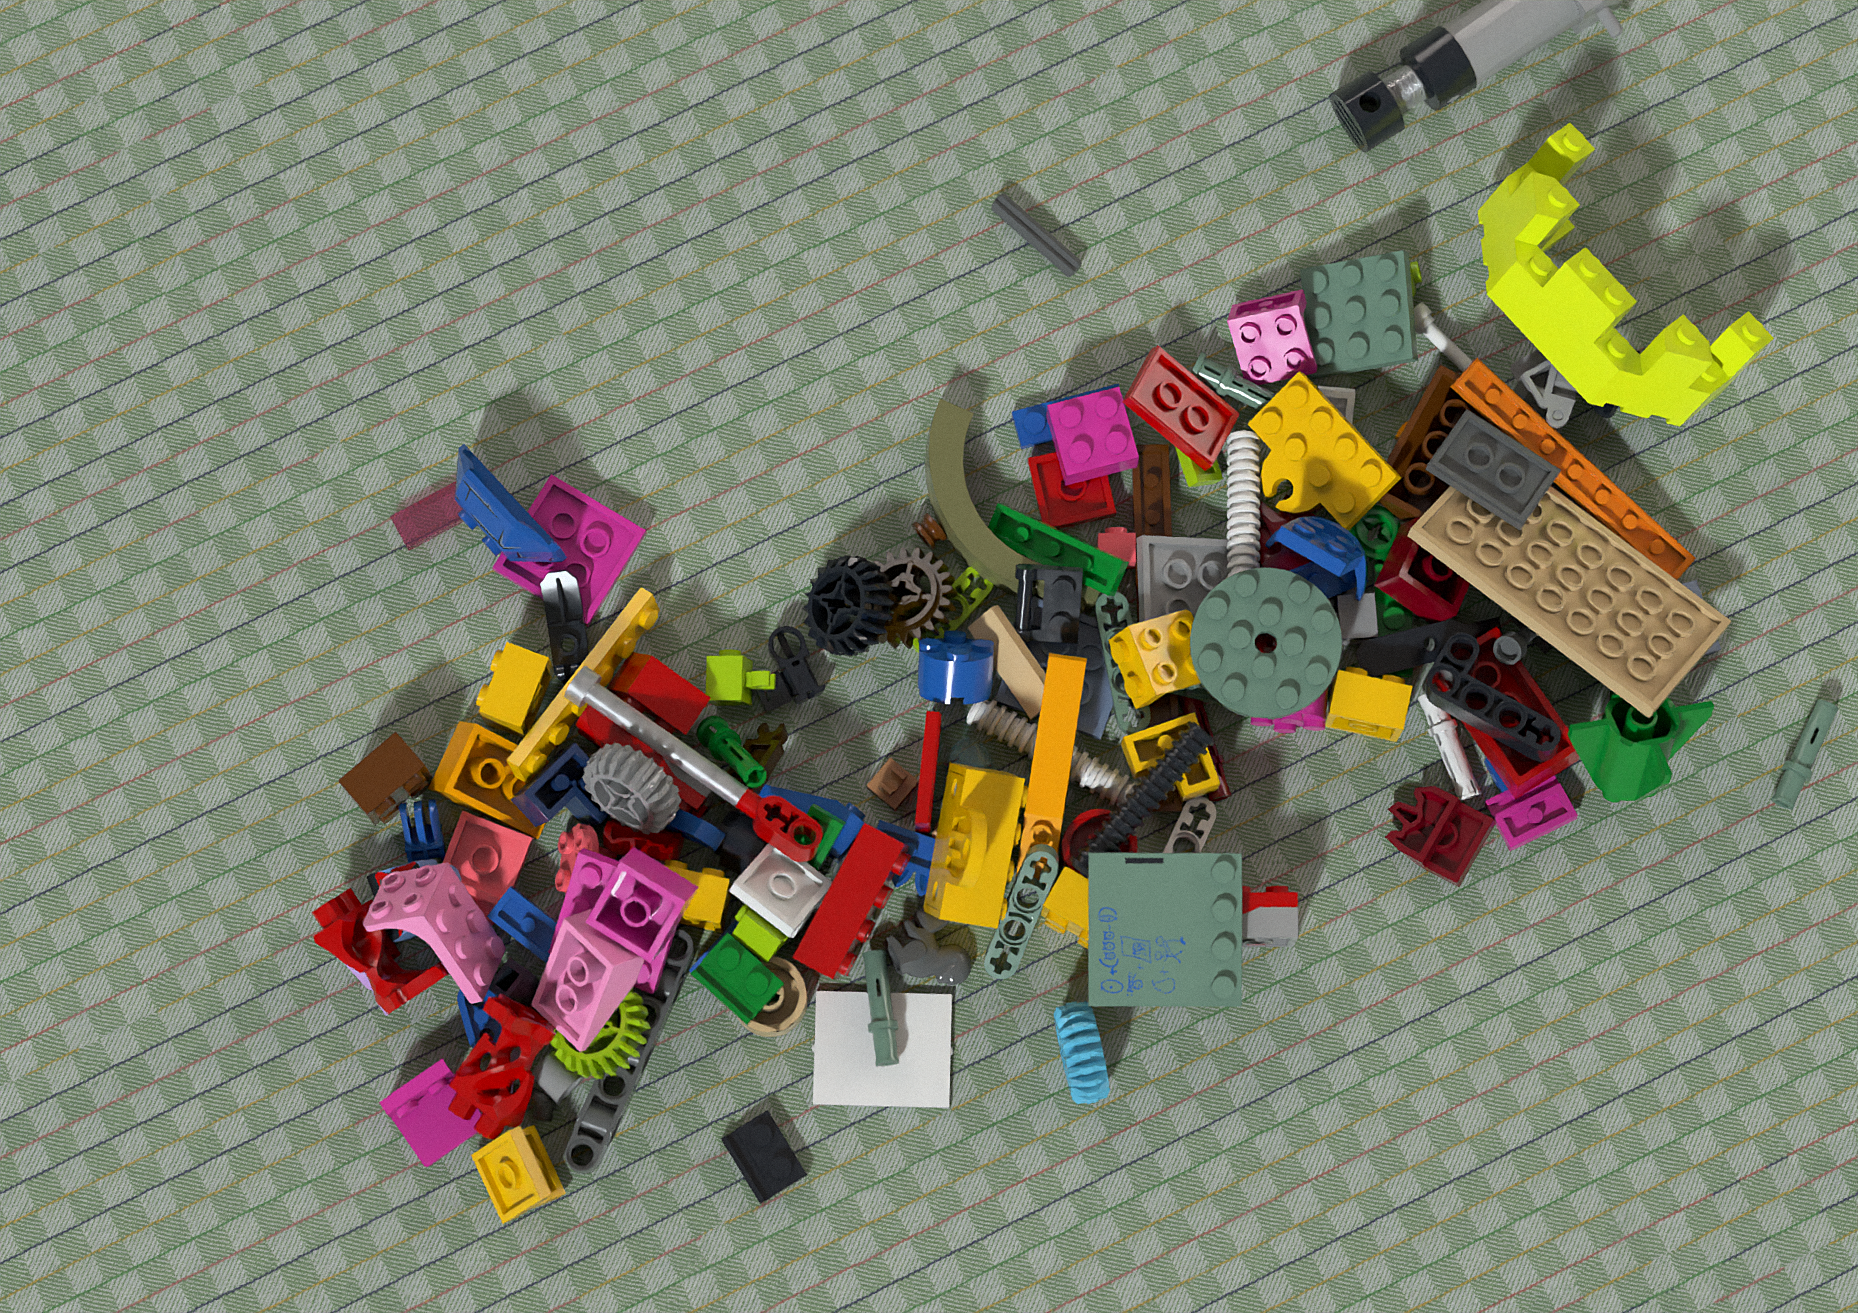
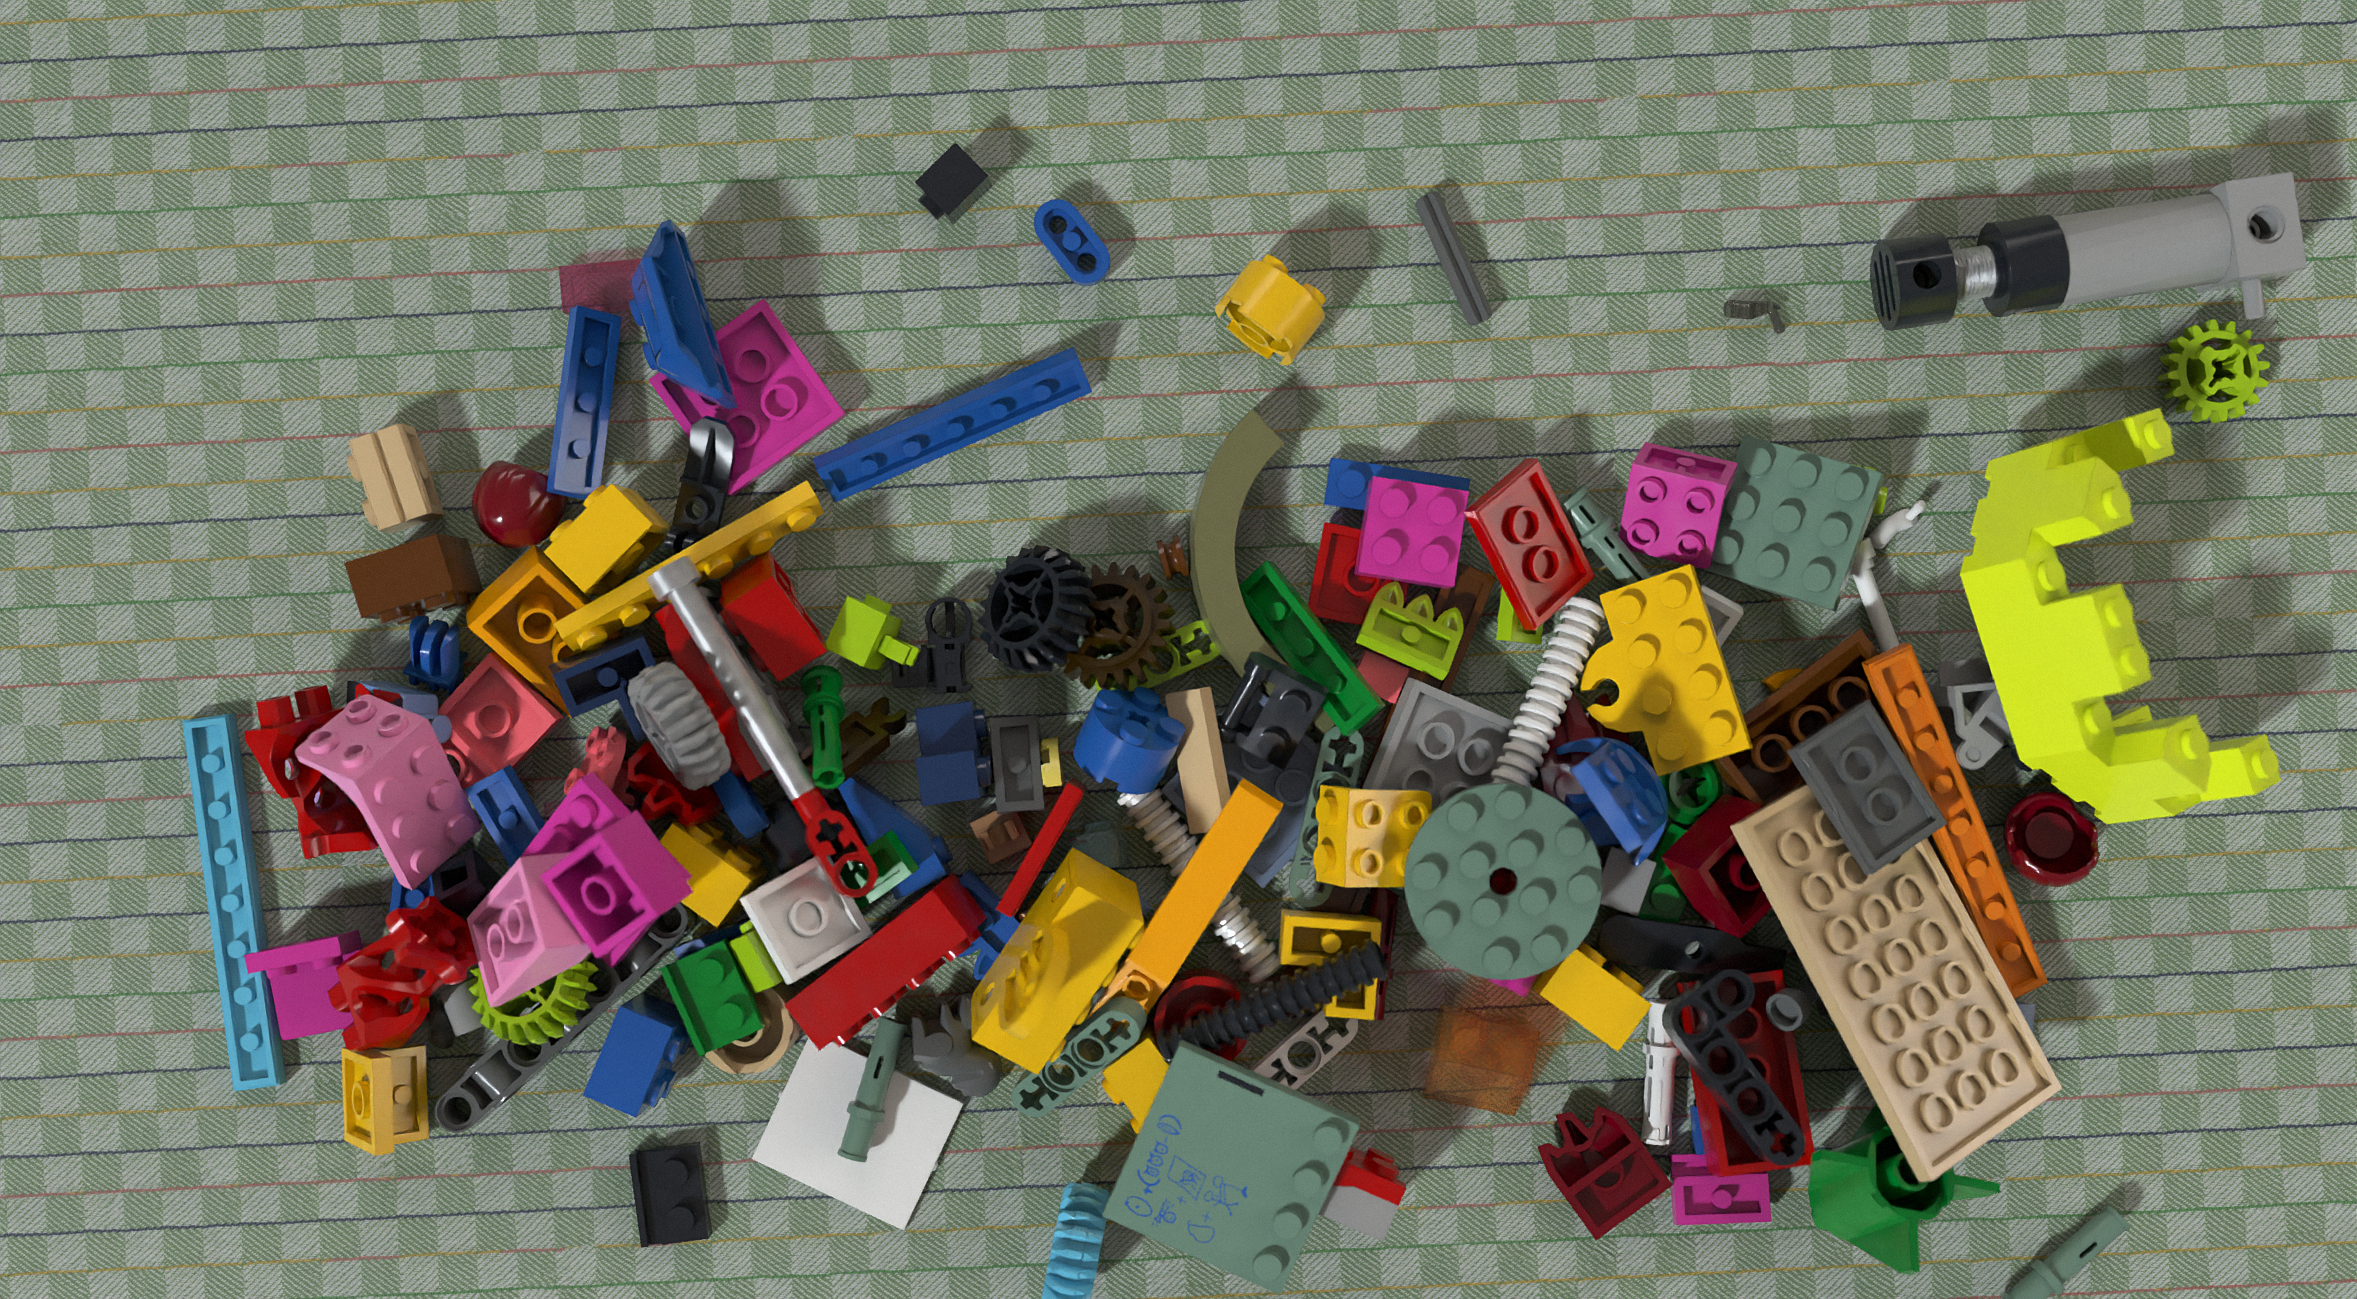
camera: 25 degrees right, 10 degrees up
(336, 718) = (394, 479): none -> tan brick
(344, 1084) = (233, 900): none -> medium azure tile
(435, 696) = (514, 505): none -> dark red piece
(453, 603) = (584, 402): none -> blue plate
(652, 336) = (952, 185): none -> black brick
(699, 1051) = (639, 1055): none -> blue brick
(727, 505) = (952, 425): none -> blue plate
(758, 340) = (1073, 243): none -> blue plate
(832, 737) = (952, 753): none -> dark blue brick
(882, 727) = (1016, 764): none -> dark grey plate
(907, 717) = (1052, 763): none -> light yellow tile
(922, 324) = (1272, 309): none -> yellow brick
(1124, 506) = (1411, 633): none -> lime plate
(1266, 179) = (1753, 309): none -> clear smoke piece
(1315, 794) = (1480, 1060): none -> clear orange slope
(1435, 288) = (1896, 522): none -> white piece
(1624, 85) = (2234, 370): none -> lime gear
(1646, 456) = (2050, 839): none -> dark red piece

